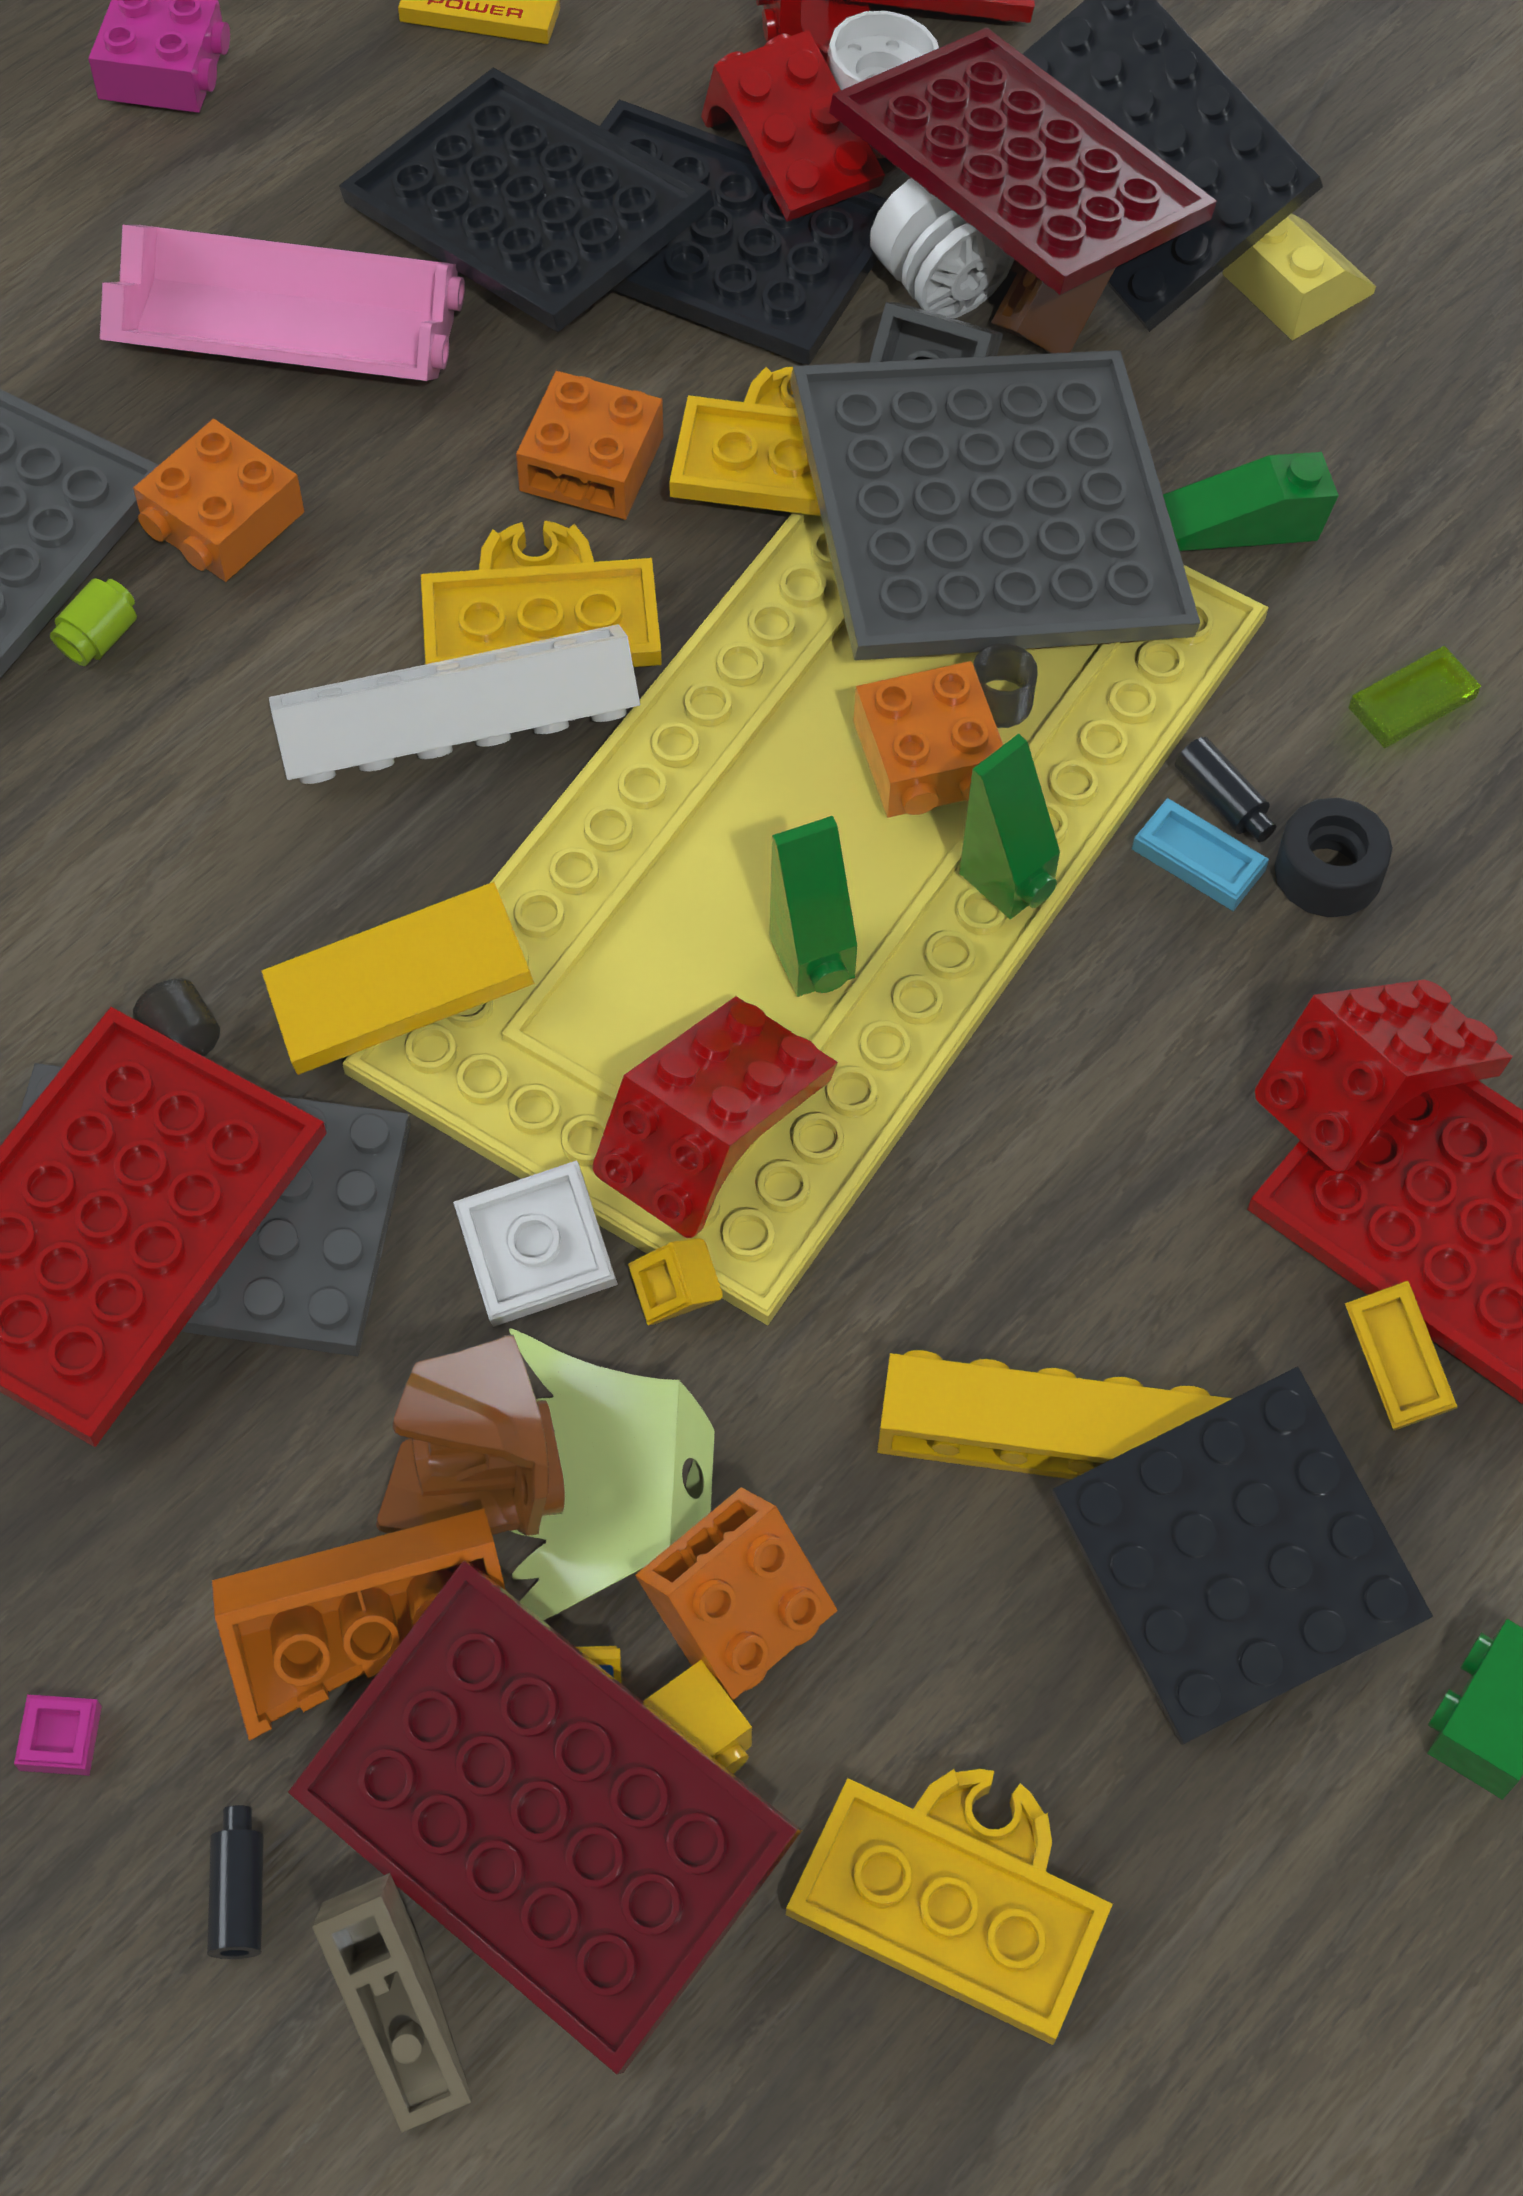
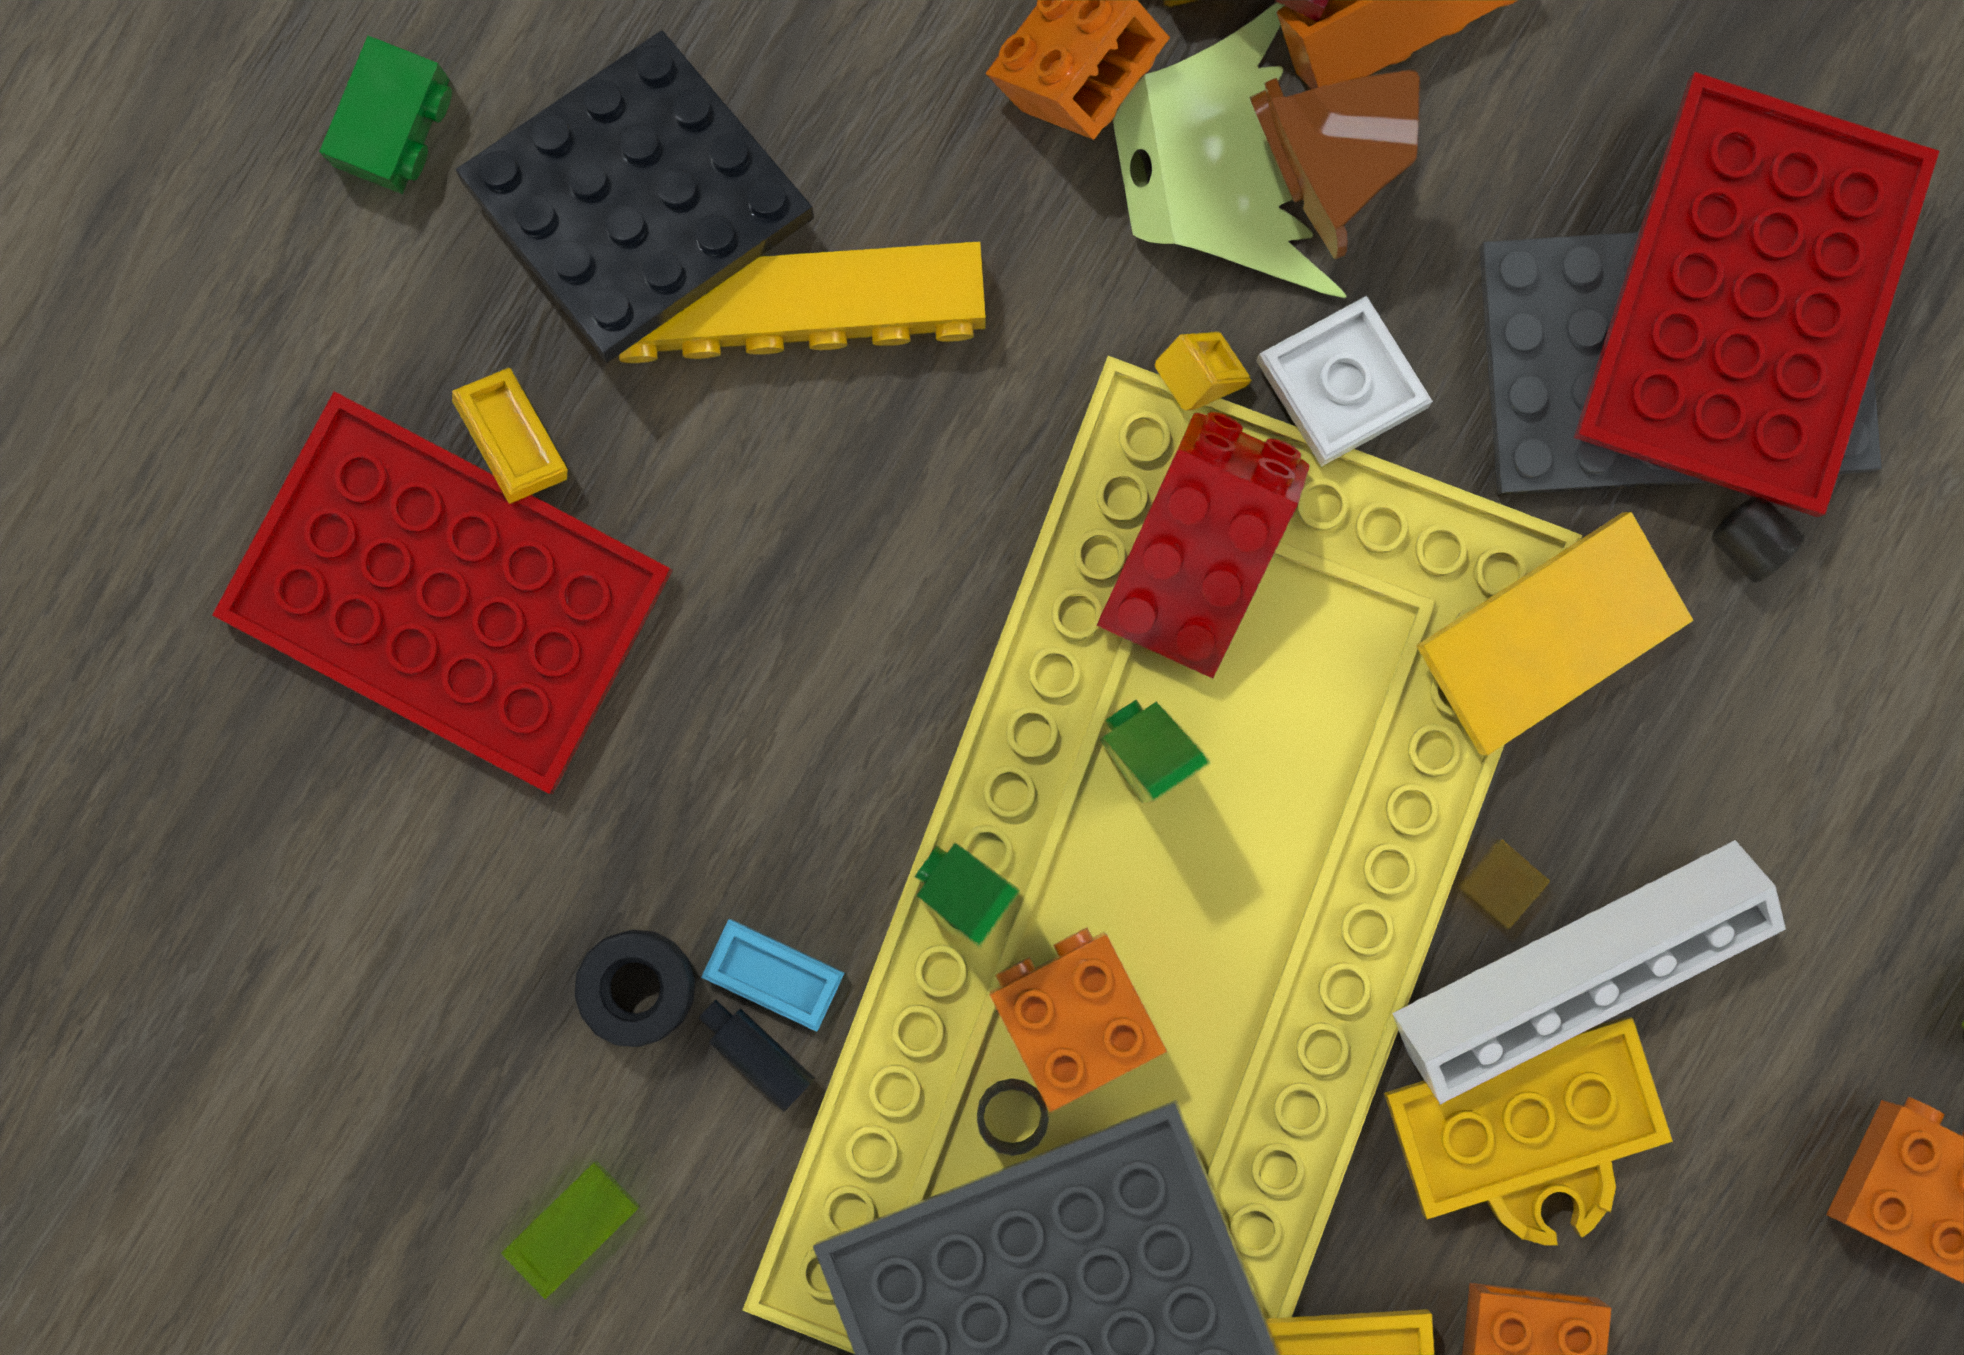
camera: 170 degrees right, 25 degrees up
(506, 801) = (1503, 884): none -> clear yellow tile
(1365, 1057) = (557, 732): red bracket -> none

